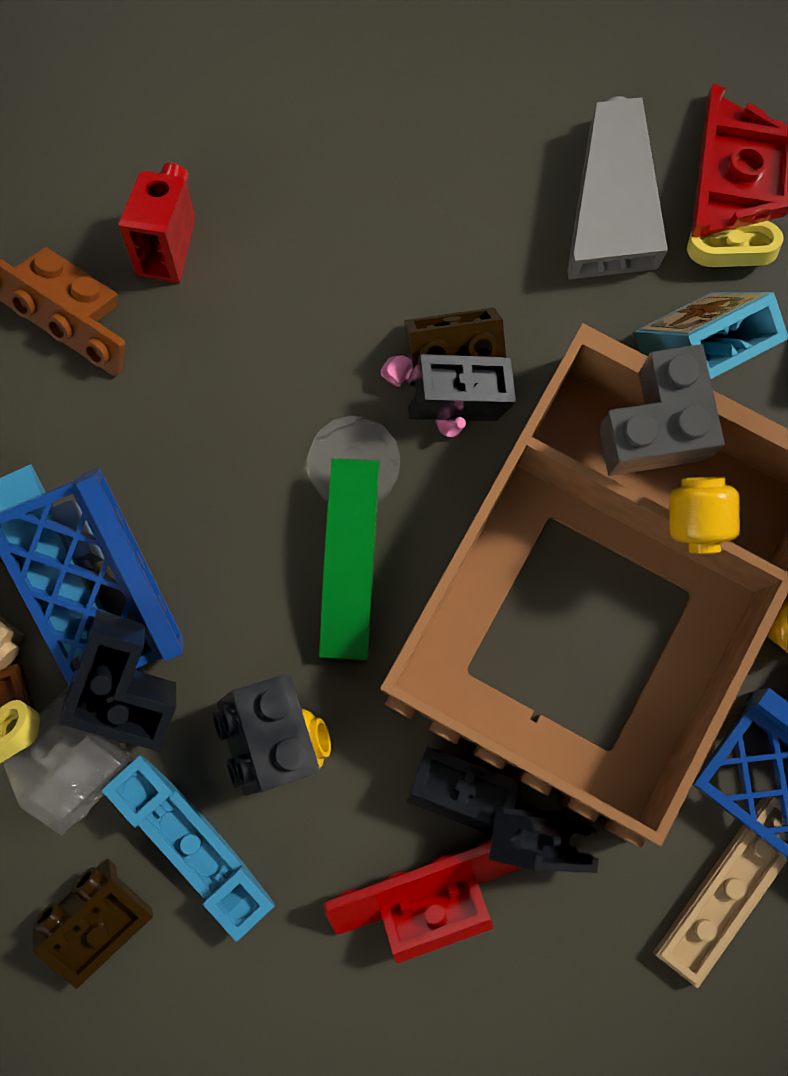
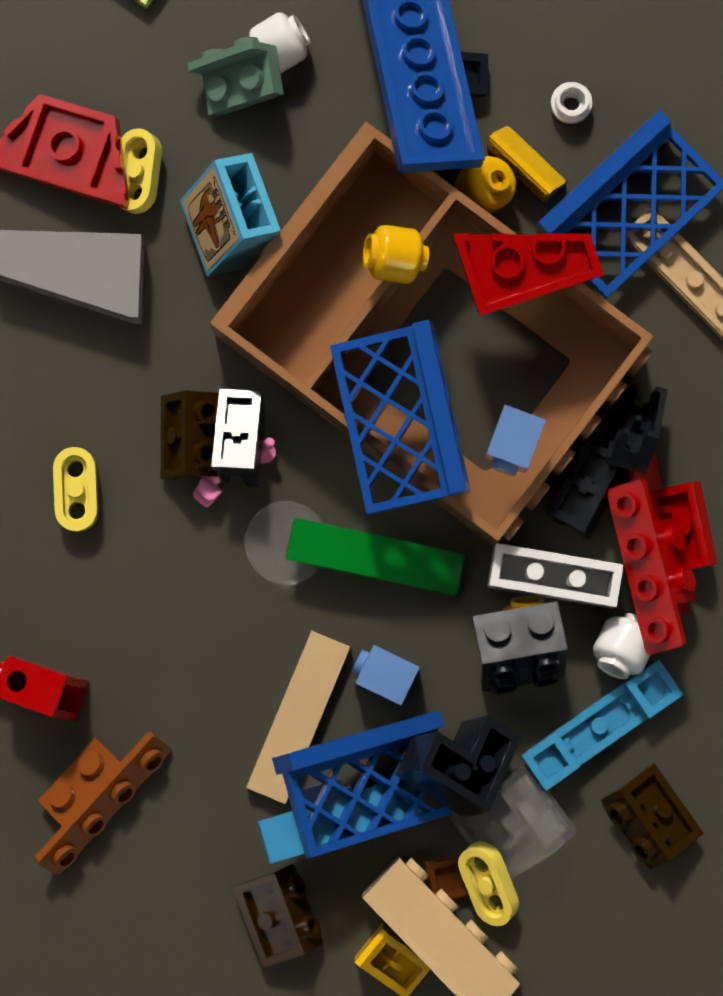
camera: 85 degrees left, 5 degrees up
(178, 504) = (299, 711): none -> tan tile
(219, 588) = (385, 674): none -> medium blue brick
(285, 861) = (621, 647): none -> white head
(353, 768) = (555, 576): none -> white brick
(377, 231) = (75, 490): none -> light yellow plate
(381, 885) = (653, 564): none -> red bracket
(502, 688) = (514, 441): none -> medium blue brick
(522, 592) = (437, 410): none -> blue fence
(674, 424) = (315, 260): dark grey brick -> none
(718, 673) = (522, 267): none -> red wing

